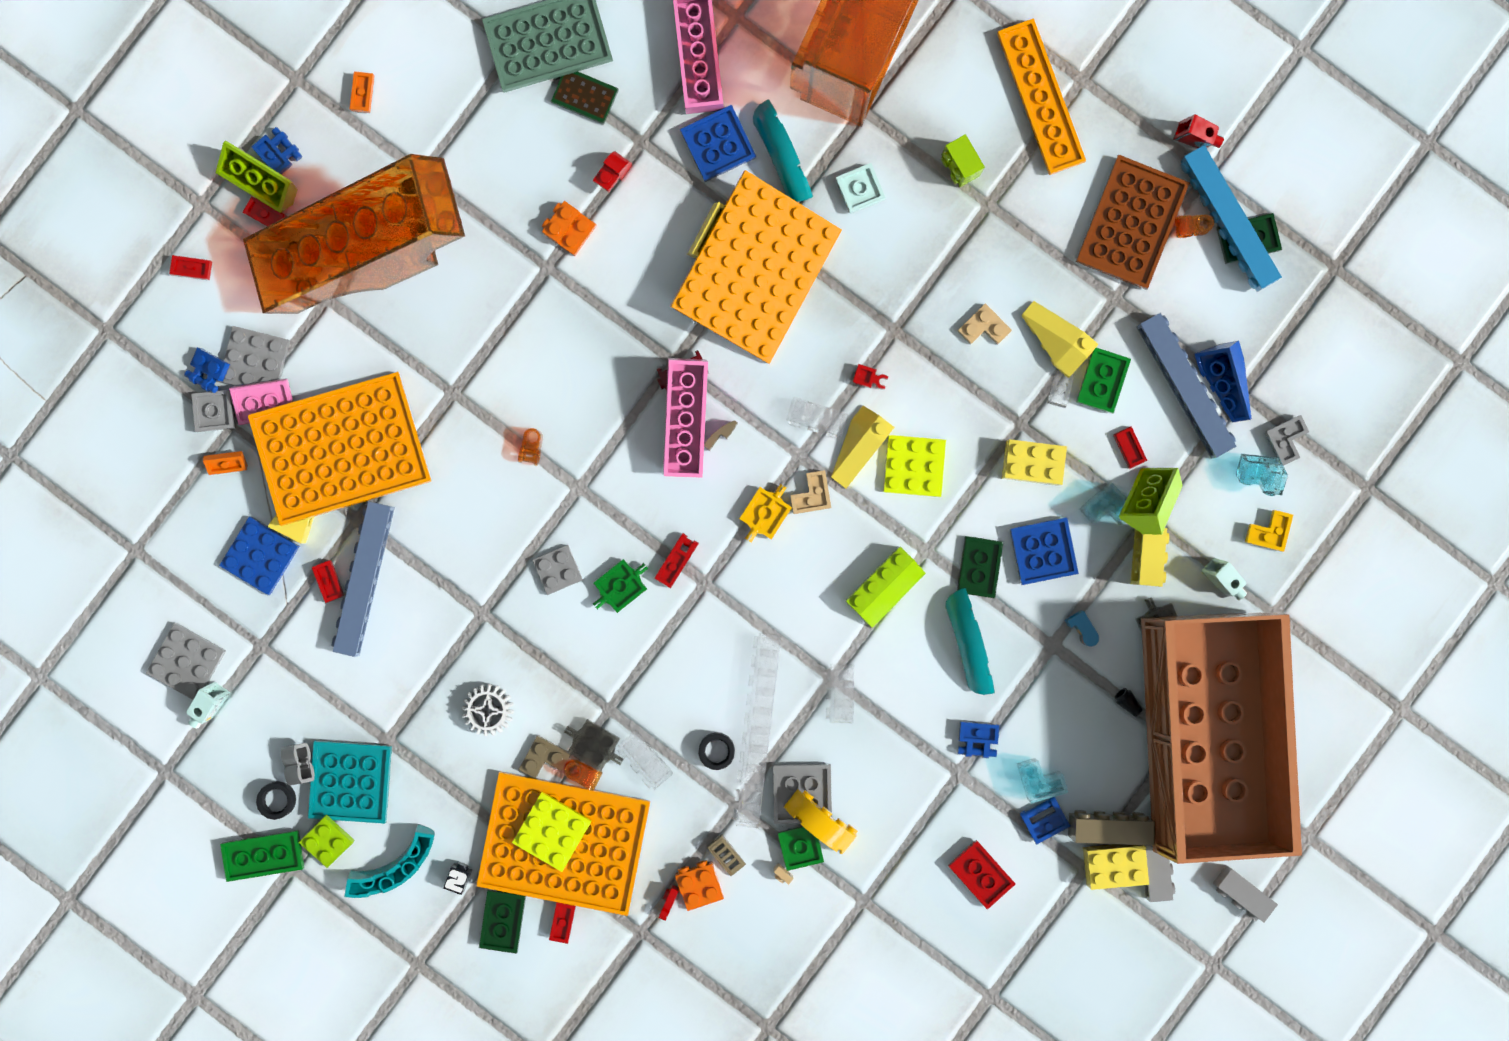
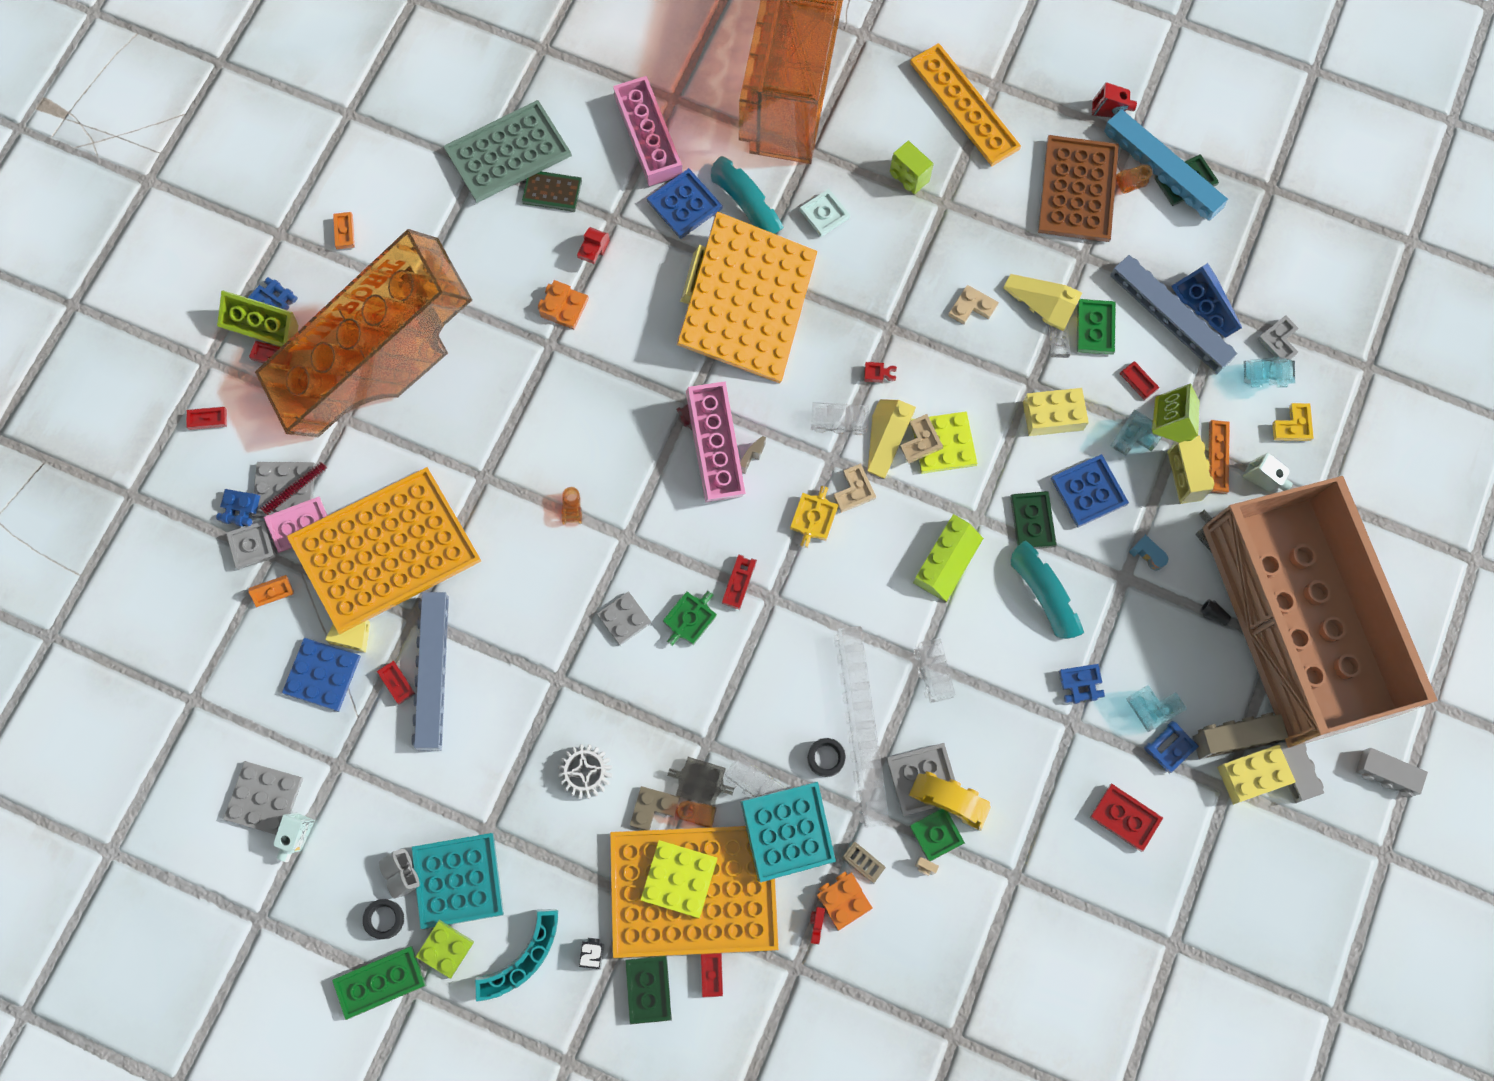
camera: 15 degrees left, 15 degrees down
(261, 363) = (294, 487): none -> dark red piece
(661, 814) = (788, 831): none -> teal plate
(895, 465) = (926, 441): none -> tan plate
(1184, 545) = (1219, 455): none -> orange tile

